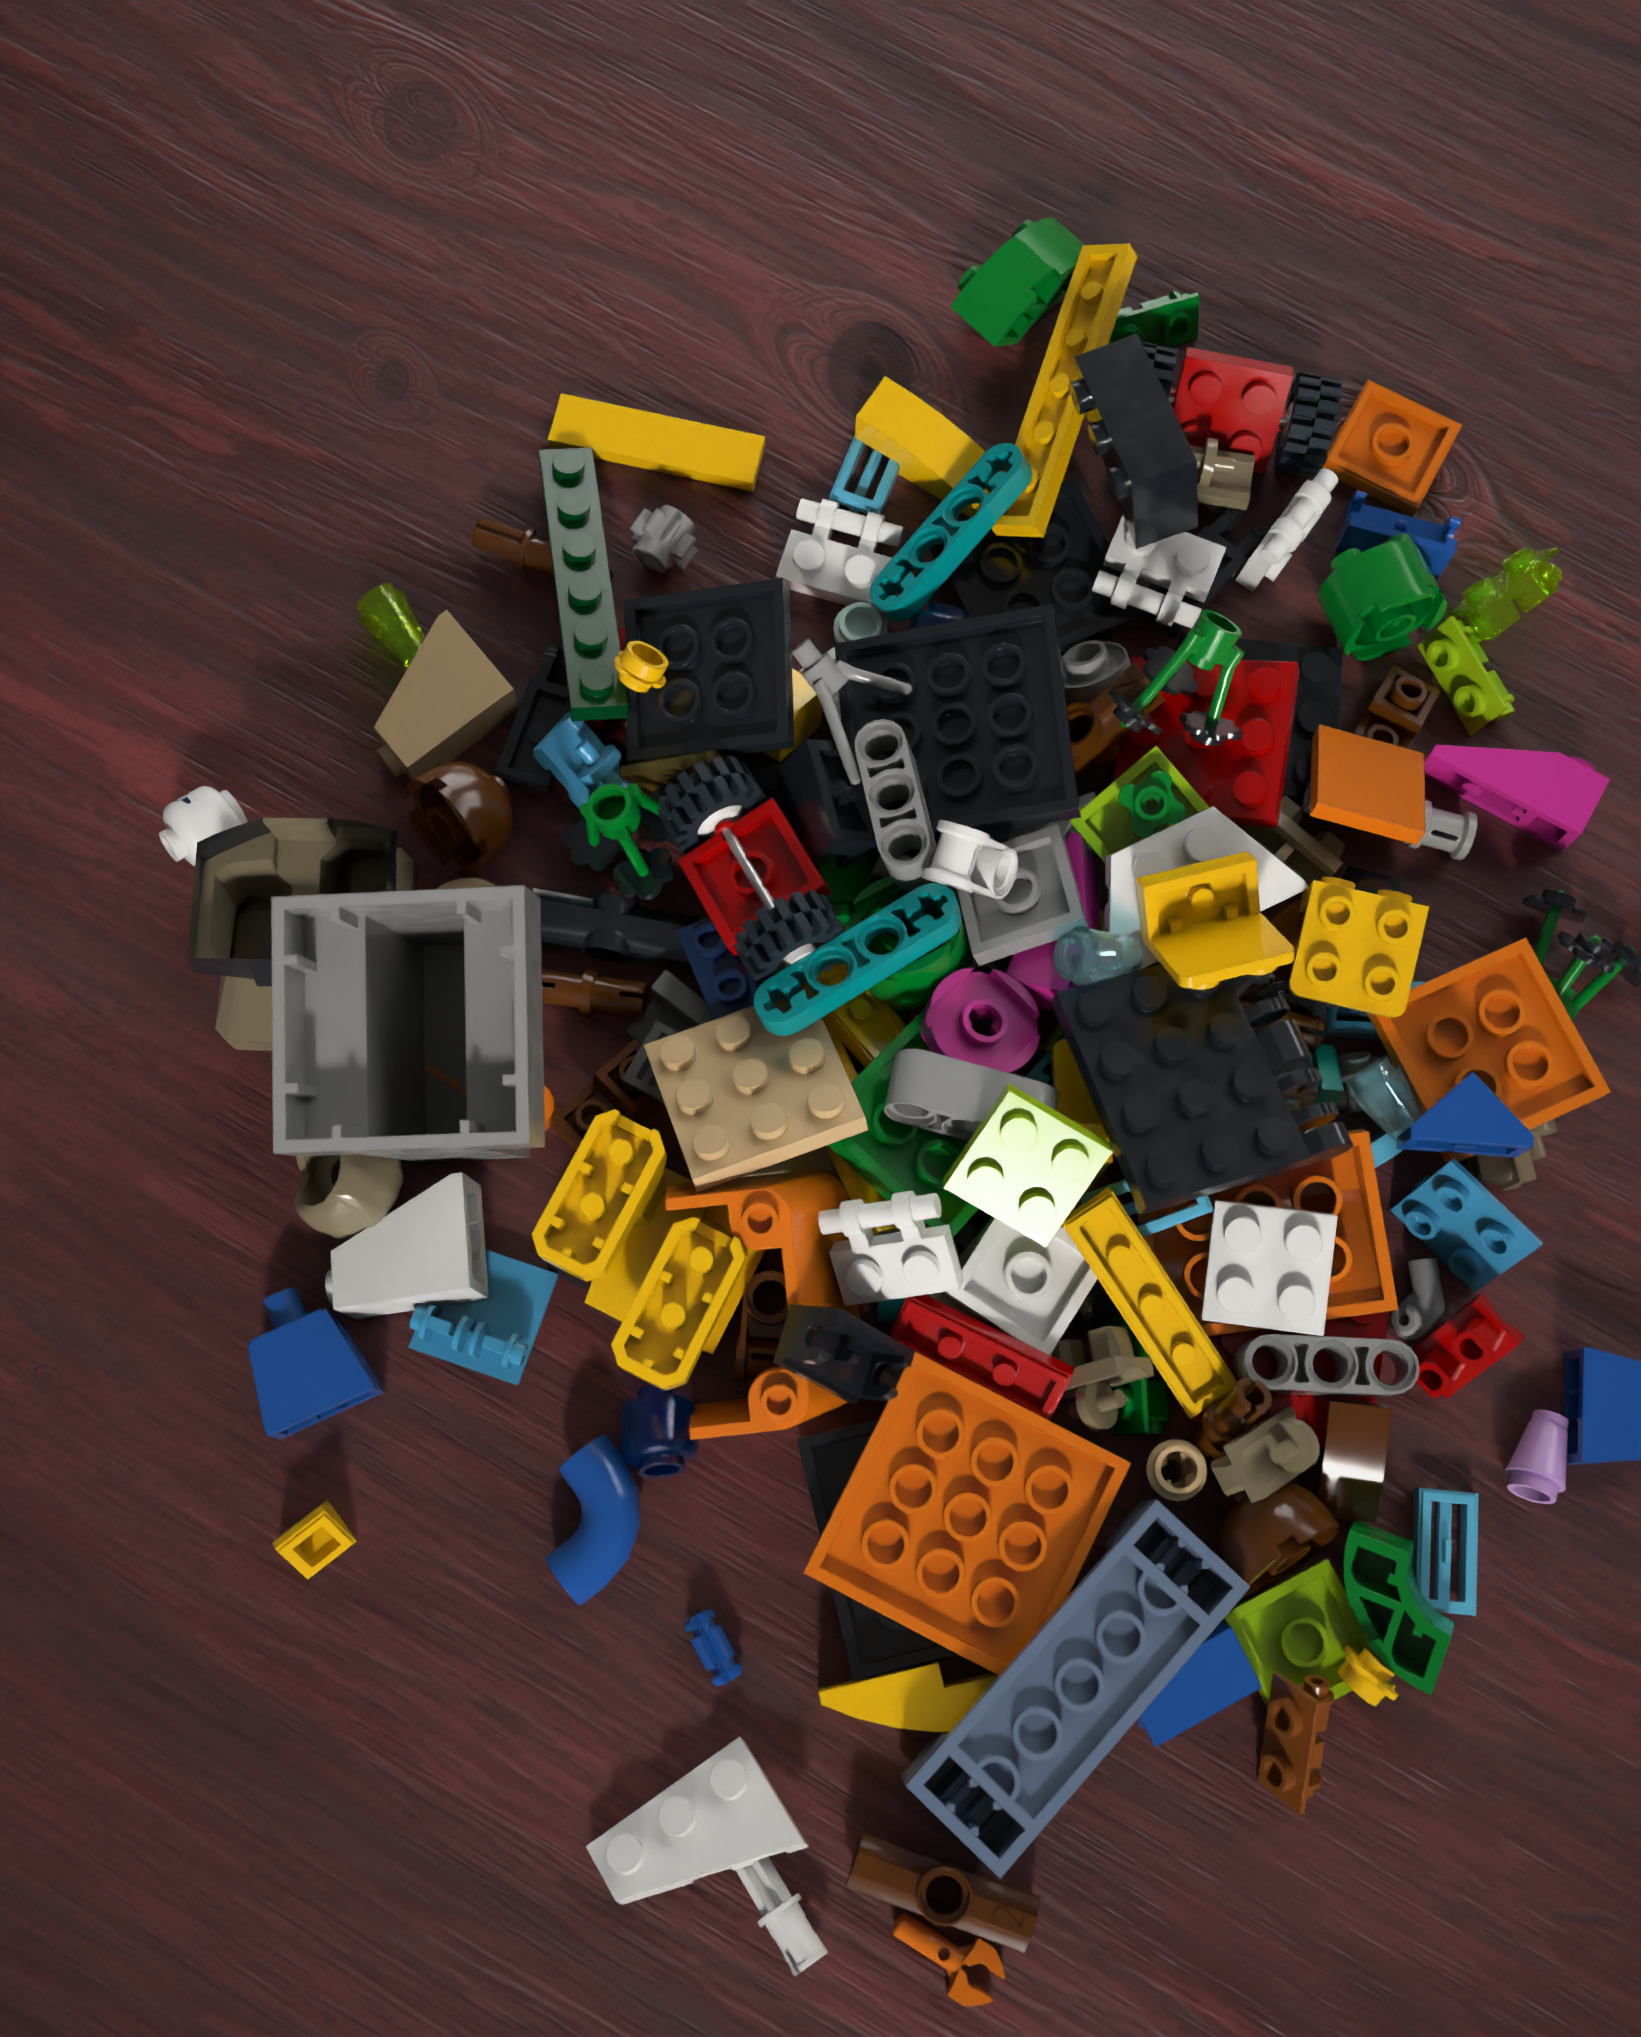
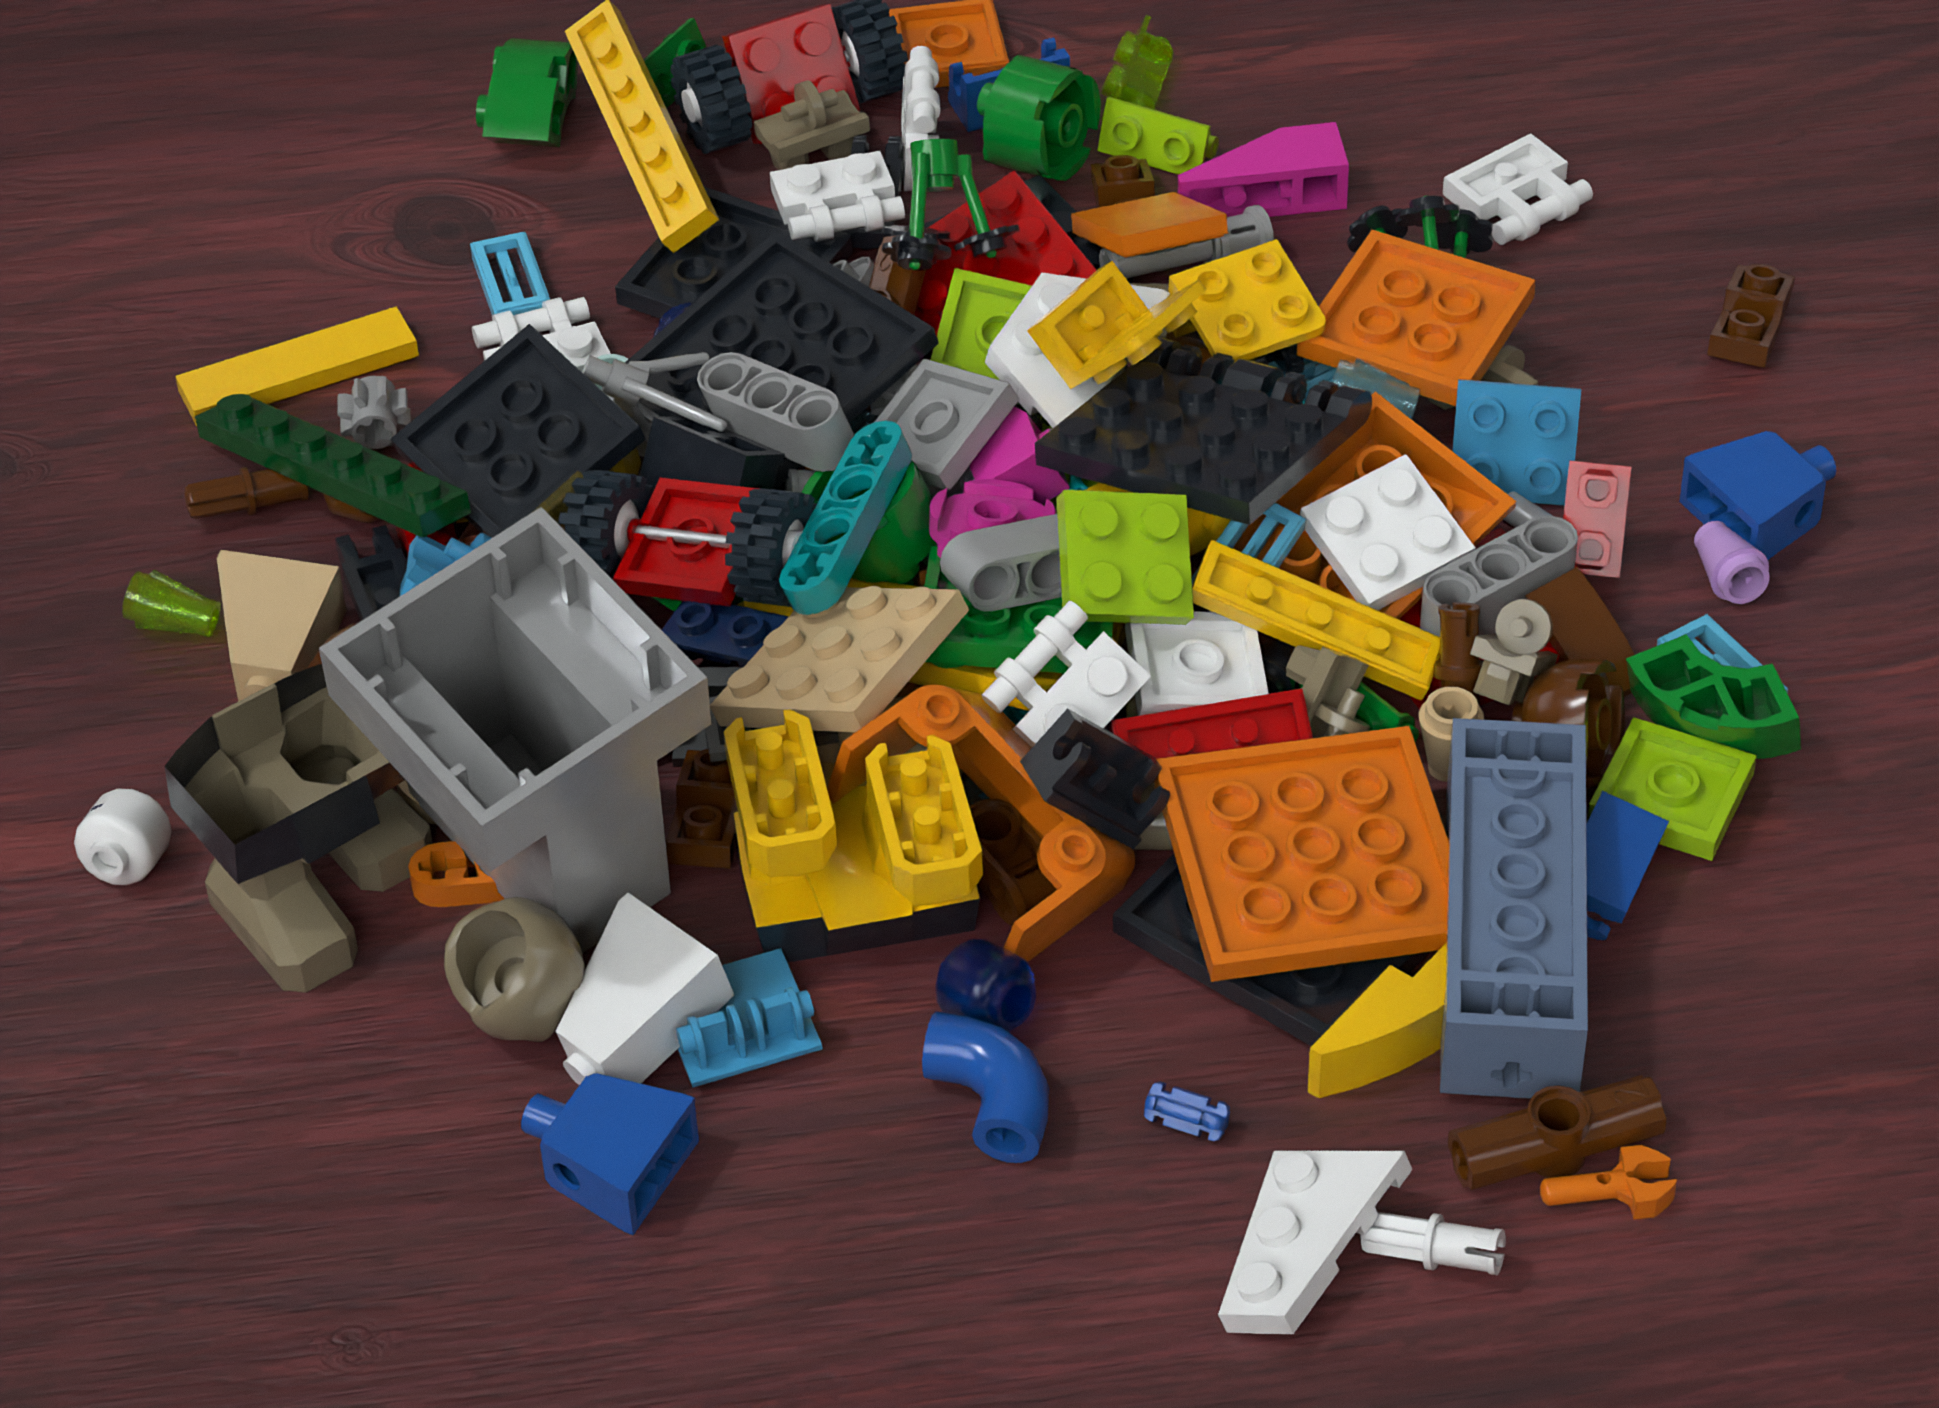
camera: 35 degrees left, 30 degrees down
(315, 1540) = (740, 1271): yellow slope -> none
(641, 666) = (456, 457): yellow plate -> none
(919, 439) = (559, 233): yellow slope -> none
(957, 536) = (640, 203): teal beam -> none
(972, 861) = (875, 392): white piece -> none
(1094, 955) = (1040, 402): clear light blue cone -> none
(1138, 440) = (747, 95): black wedge -> none
(1167, 809) = (983, 318): green plate -> none
(1290, 1744) = (1728, 839): dark orange hinge -> none
(1367, 1675) = (1740, 749): yellow plate -> none
(1468, 1122) = (1450, 344): blue slope -> none

